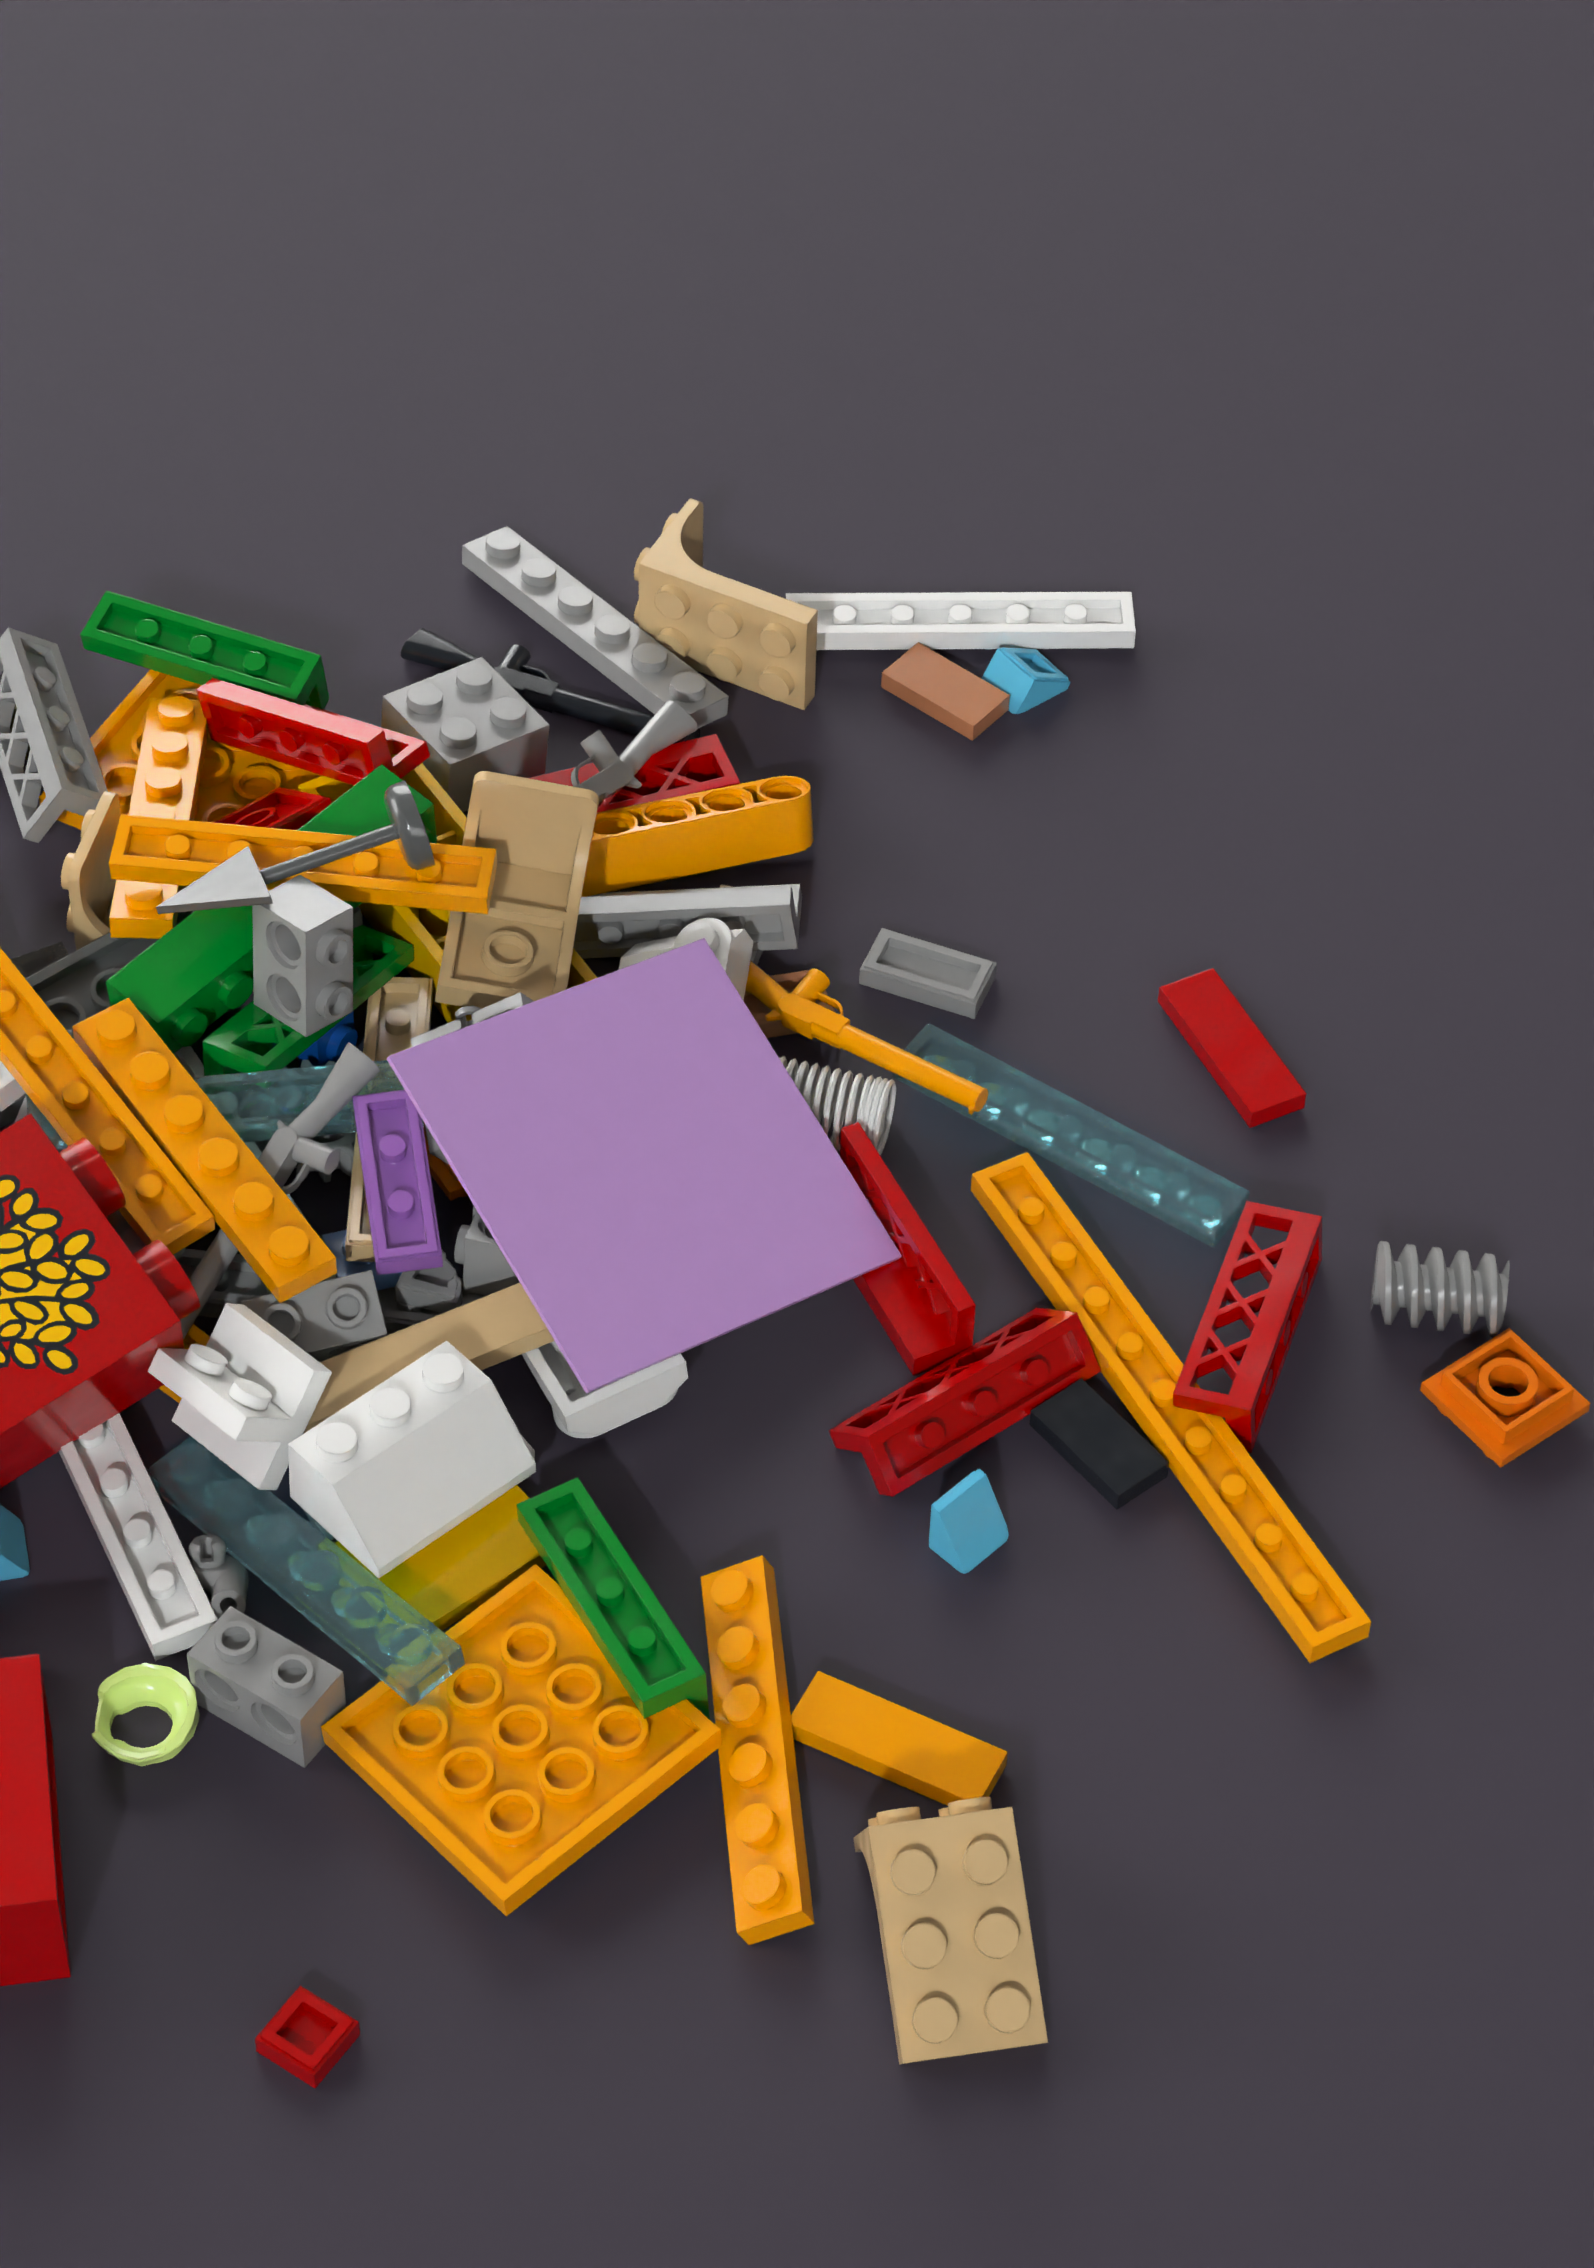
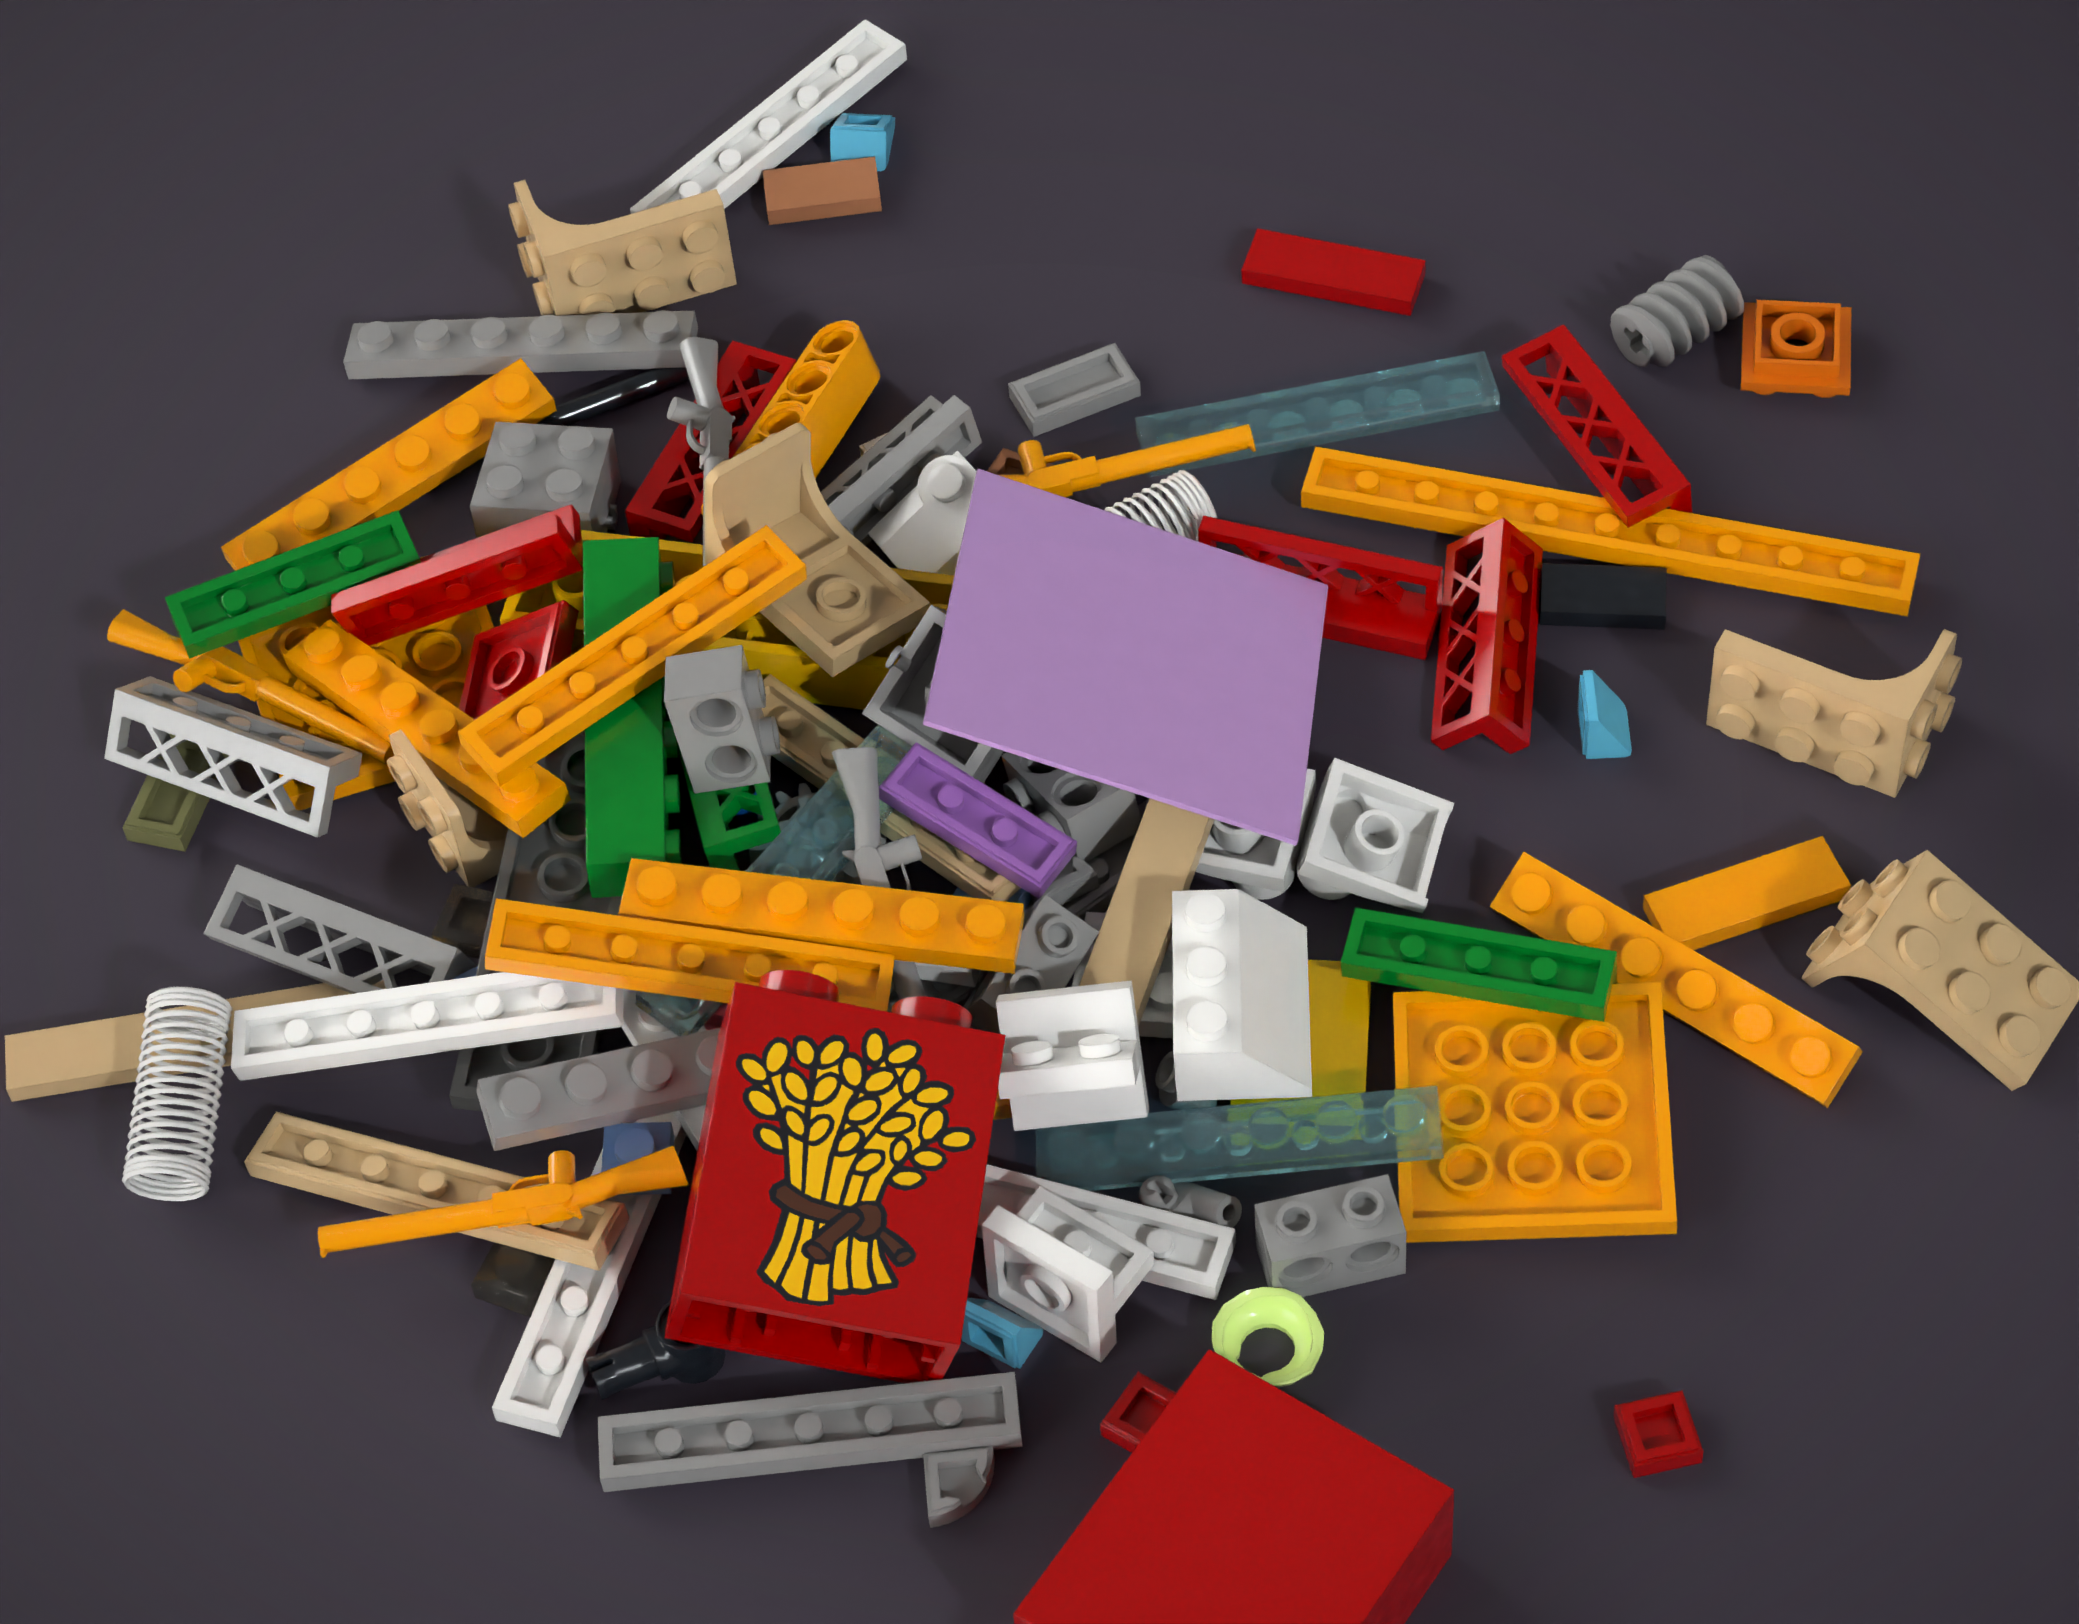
camera: 40 degrees left, 5 degrees up
(69, 1530) = (1063, 1269): none -> white bracket
(110, 690) = (234, 674): none -> light orange piece
(241, 882) = (627, 705): dark grey piece -> none
(404, 644) = (399, 468): none -> light orange plate
(677, 1453) = (1371, 838): none -> white slope
(1136, 1707) = (1838, 723): none -> tan bracket

